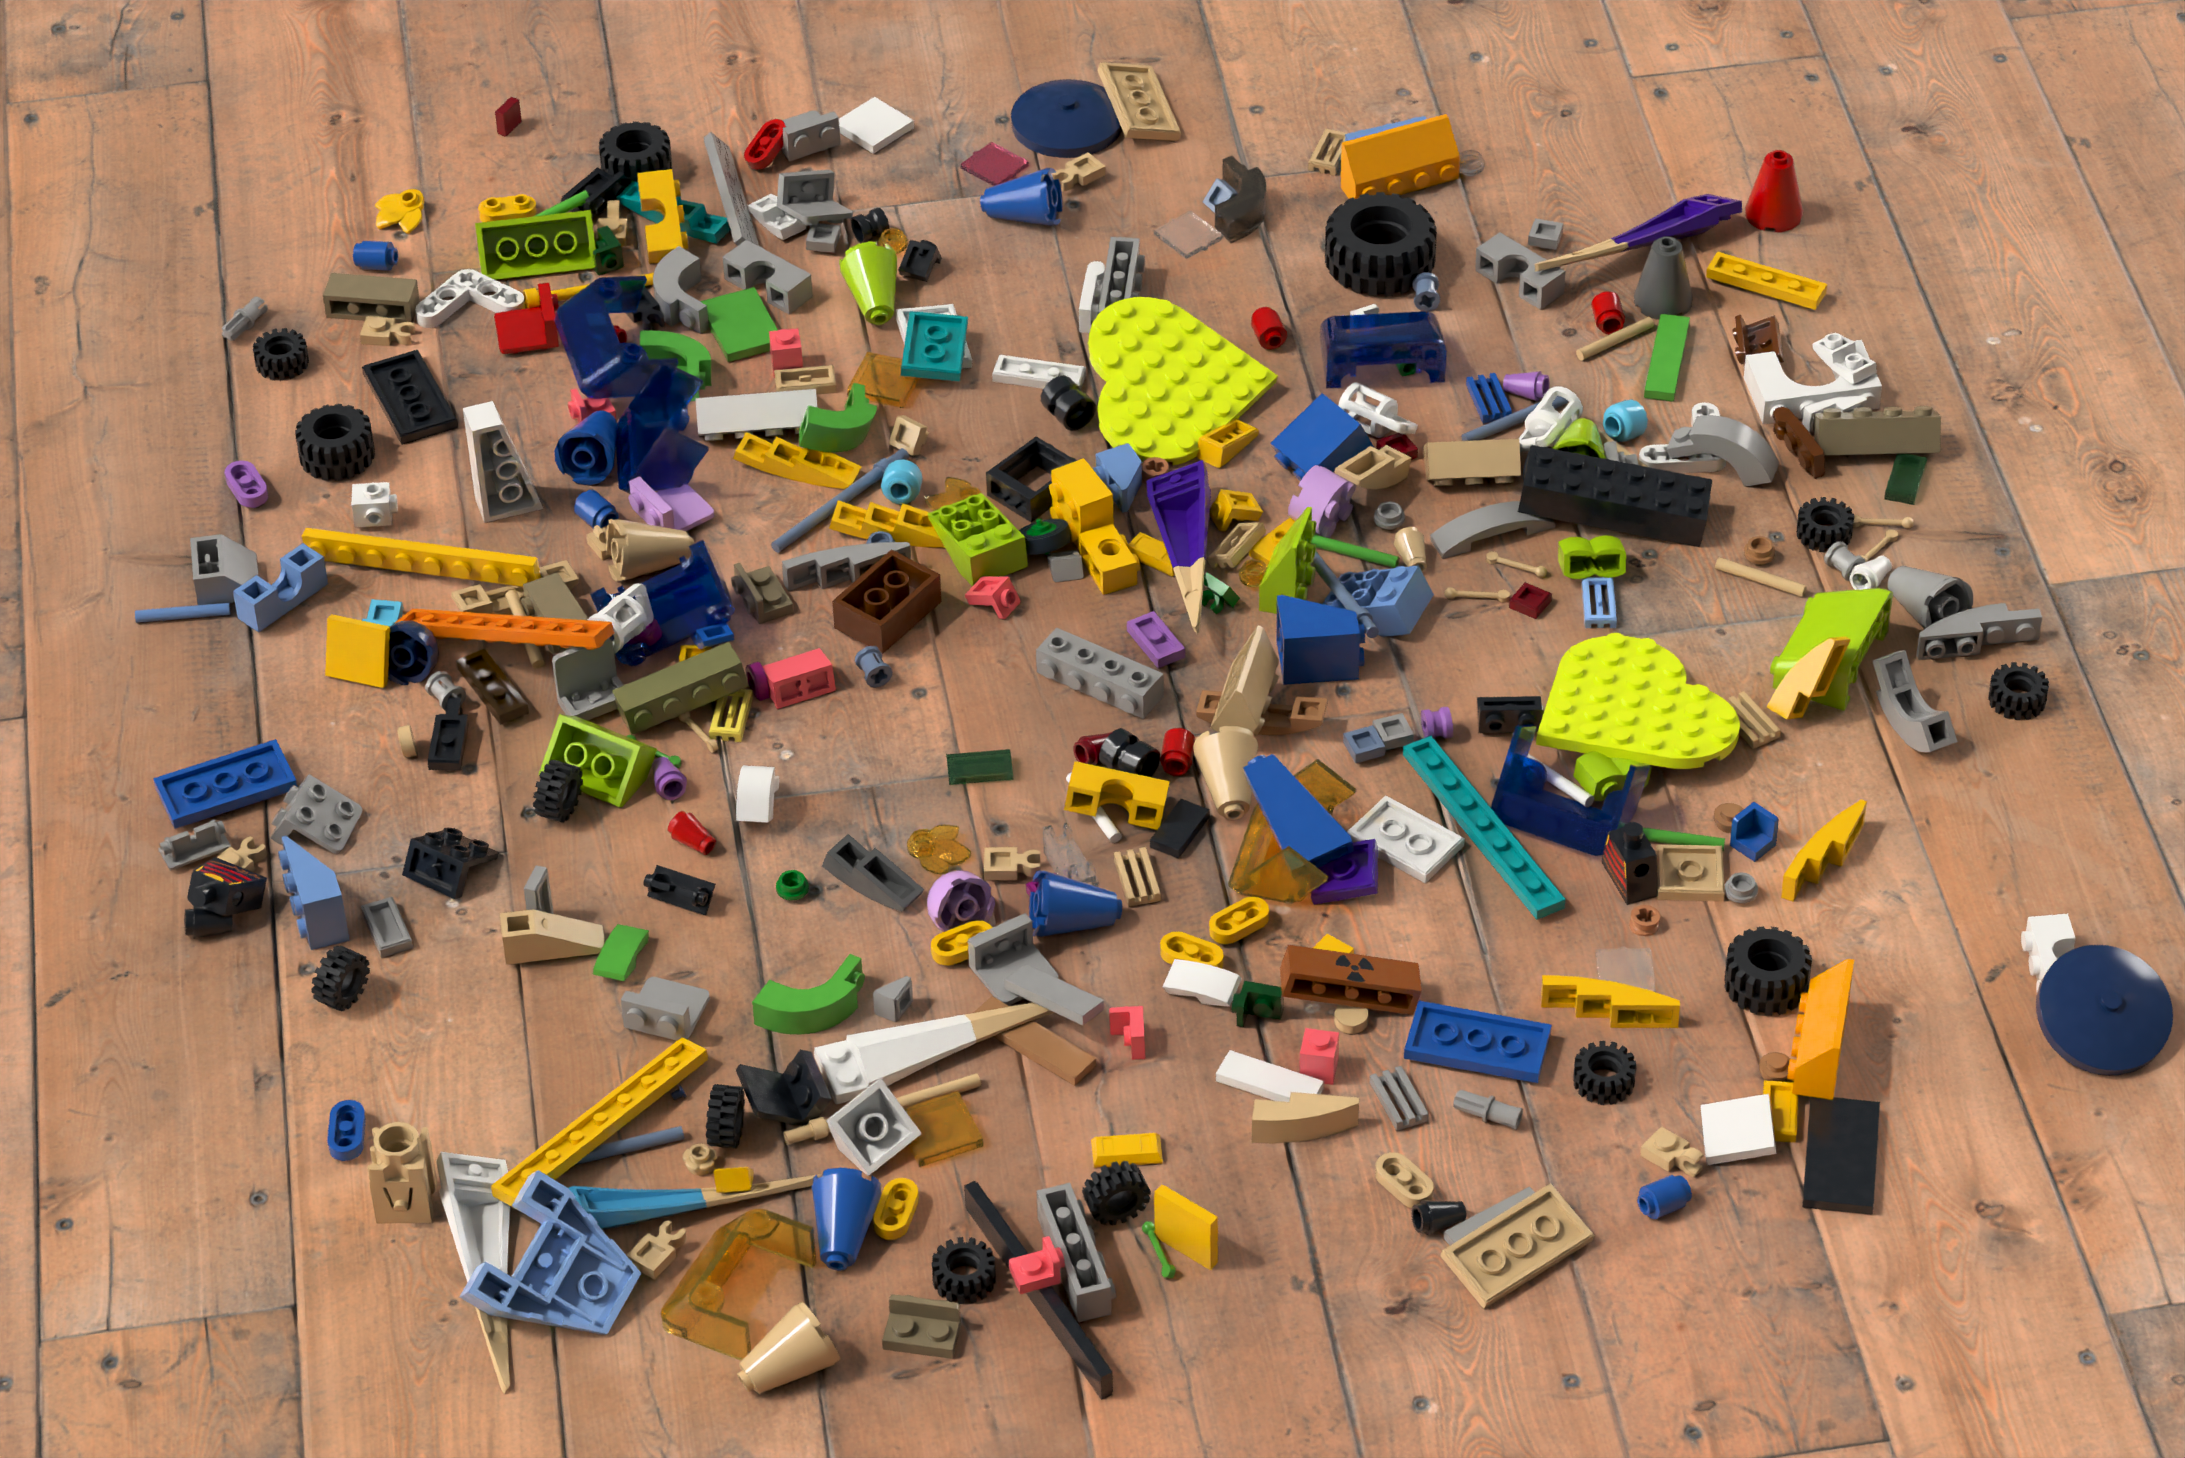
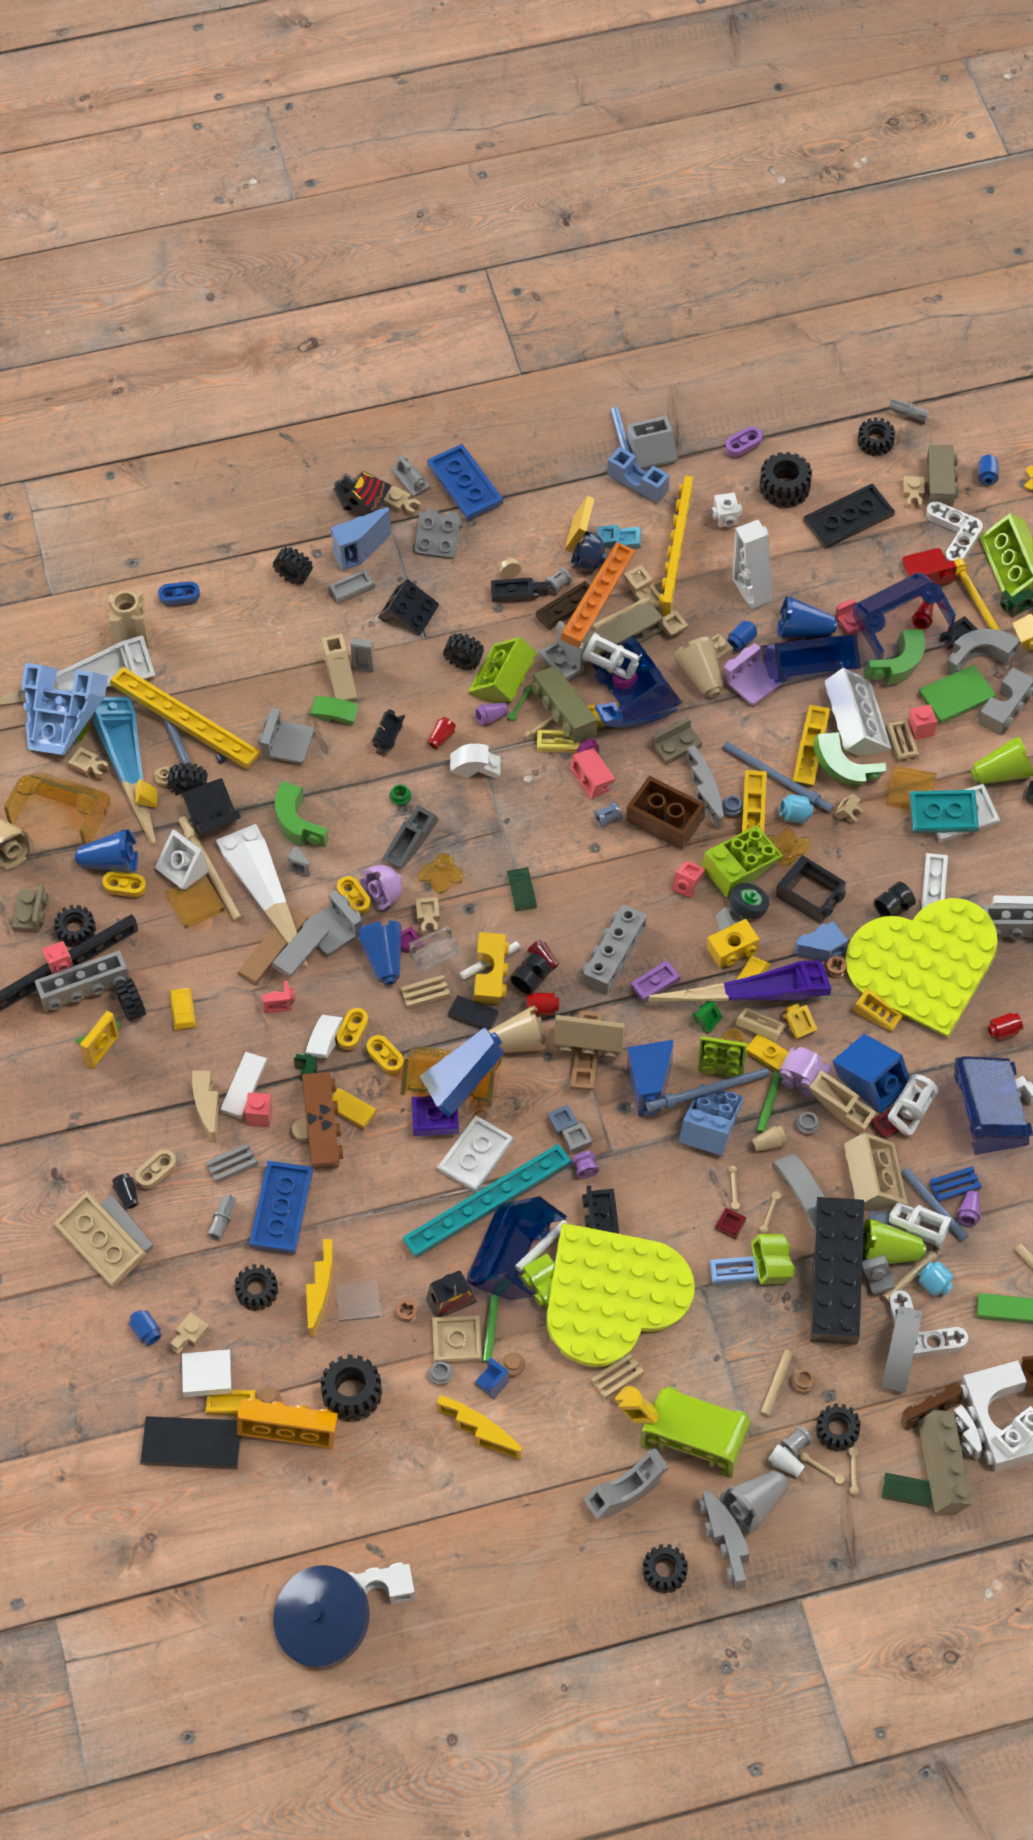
camera: 85 degrees right, 15 degrees up
(1080, 498) = (776, 917): yellow brick -> none

